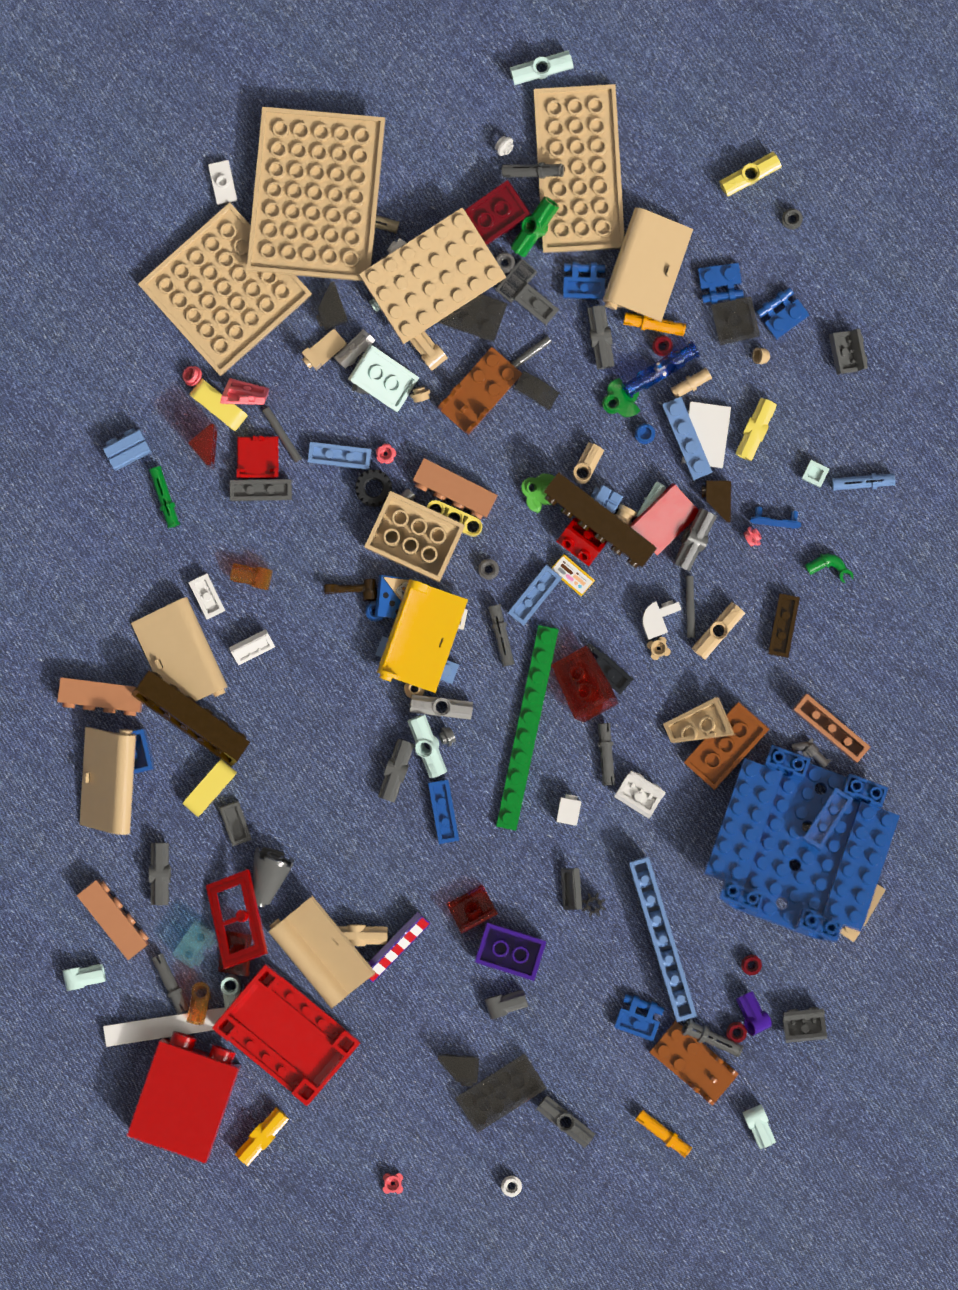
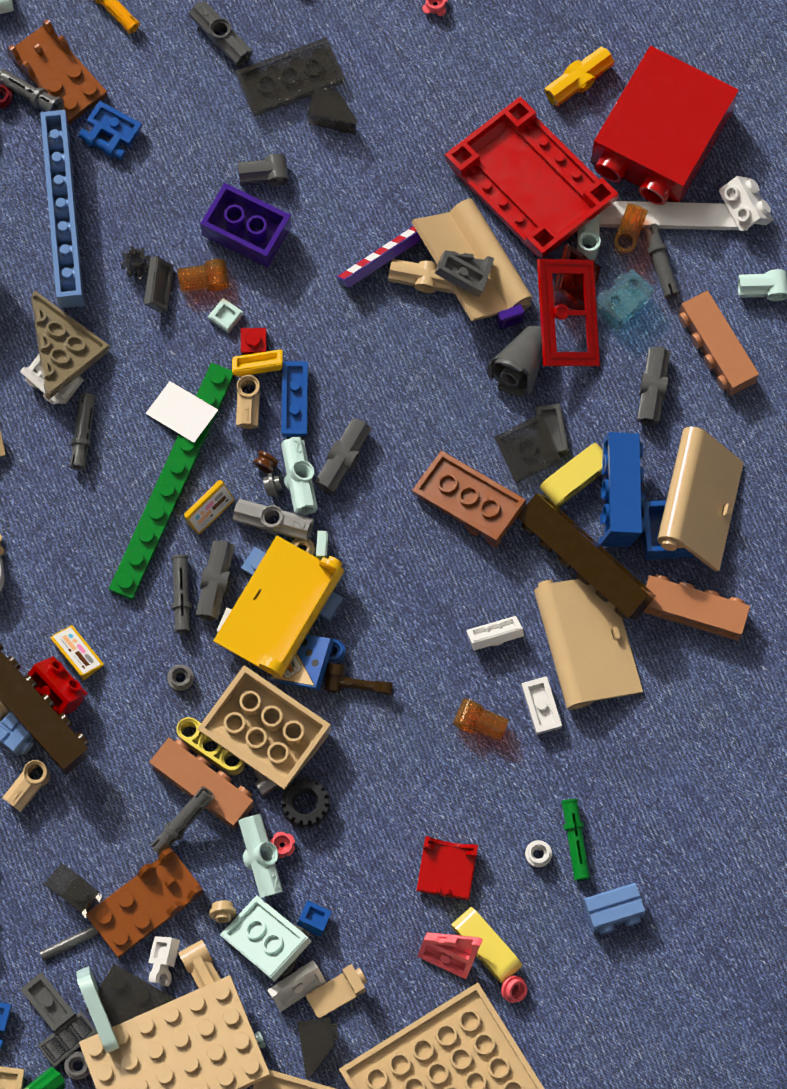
camera: 170 degrees left, 15 degrees down
(108, 1045) = (745, 203): none -> white bracket
(170, 777) = (622, 490): none -> blue wedge
(186, 477) = (542, 846): none -> white plate
(205, 444) = (513, 891): clear red slope -> none
(251, 803) = (528, 448): none -> clear smoke tile
(261, 490) = (450, 826): dark grey plate -> none
(282, 434) = (411, 893): dark grey bar -> none
(283, 912) = (510, 317): none -> dark purple tile
(290, 752) = (469, 498): none -> hinge
(324, 936) = (465, 271): none -> dark grey wing
(339, 456) = (341, 851): medium blue plate -> none
(351, 401) = (314, 918): none -> blue plate
(398, 690) = (322, 545): none -> light aqua tile
(399, 440) = (260, 856): none -> light aqua piece
(456, 754) = (265, 462): none -> reddish brown bush
(457, 352) = (163, 956): none -> white plate
(467, 449) = (175, 829): none -> dark grey pin
(472, 908) = (281, 280): clear red slope -> none
(476, 650) = (215, 580): none -> dark grey piece
(478, 836) = (257, 363): none -> yellow tile
(479, 798) = (247, 404): none -> tan piece
(486, 855) = (253, 340): none -> red plate
(493, 709) = (208, 507): none -> slope
(504, 311) = (91, 996): none -> light aqua beam
(512, 874) = (225, 315): none -> light aqua tile
(530, 784) = (182, 411): none -> white sticker
(533, 903) = (211, 275): none -> clear orange piece
(535, 498) = (90, 768): bright green plate -> none
(535, 595) = (129, 634): medium blue plate -> none
(568, 810) = (142, 373): white brick -> none
(584, 685) = (91, 514): clear red slope -> none
(615, 675) = (59, 529): black hinge -> none
(635, 822) = (63, 345): none -> dark tan tile

